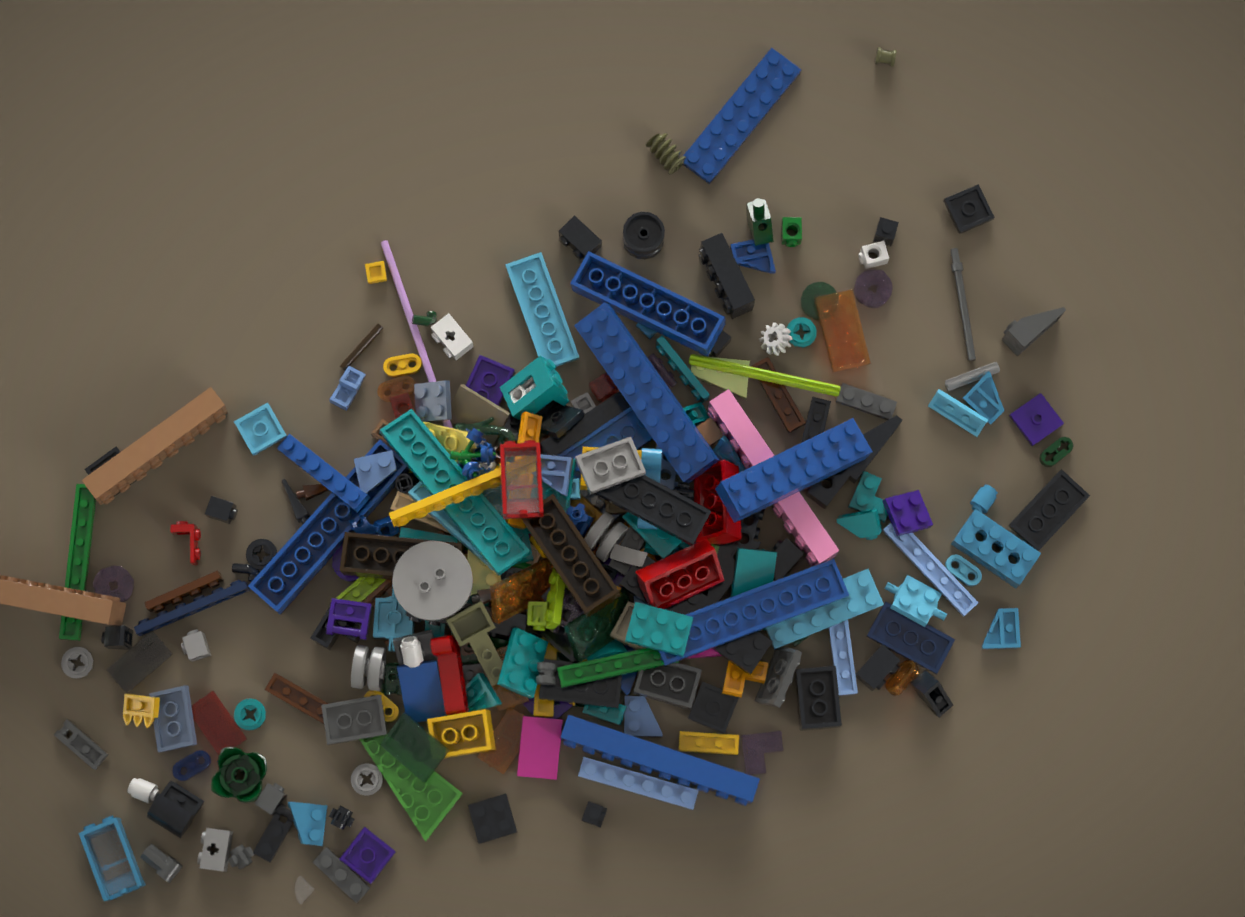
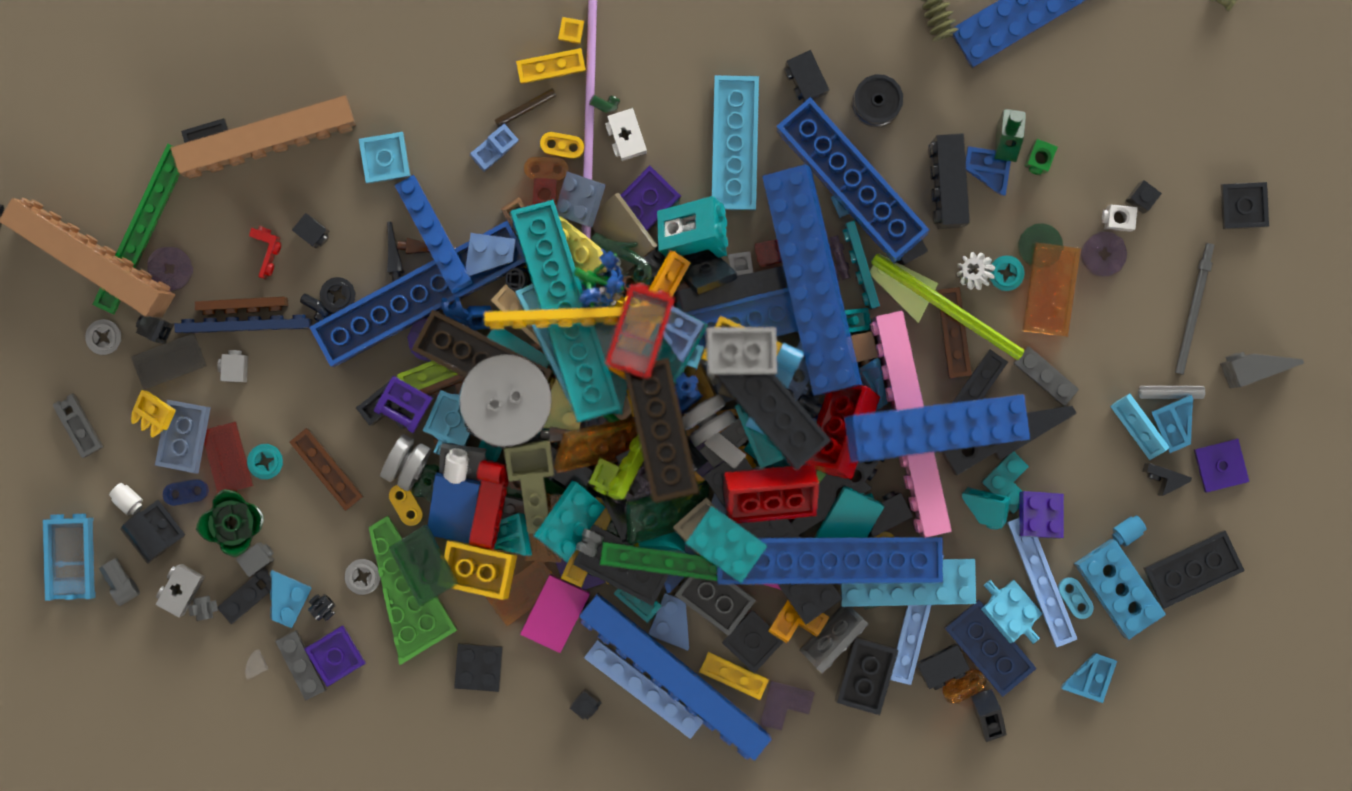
camera: 20 degrees right, 10 degrees up
(354, 719) = (371, 511): dark grey plate -> none
(370, 306) = (550, 66): none -> yellow plate
(1000, 444) = (1171, 479): none -> black slope
(1058, 455) = (1228, 514): dark green beam -> none

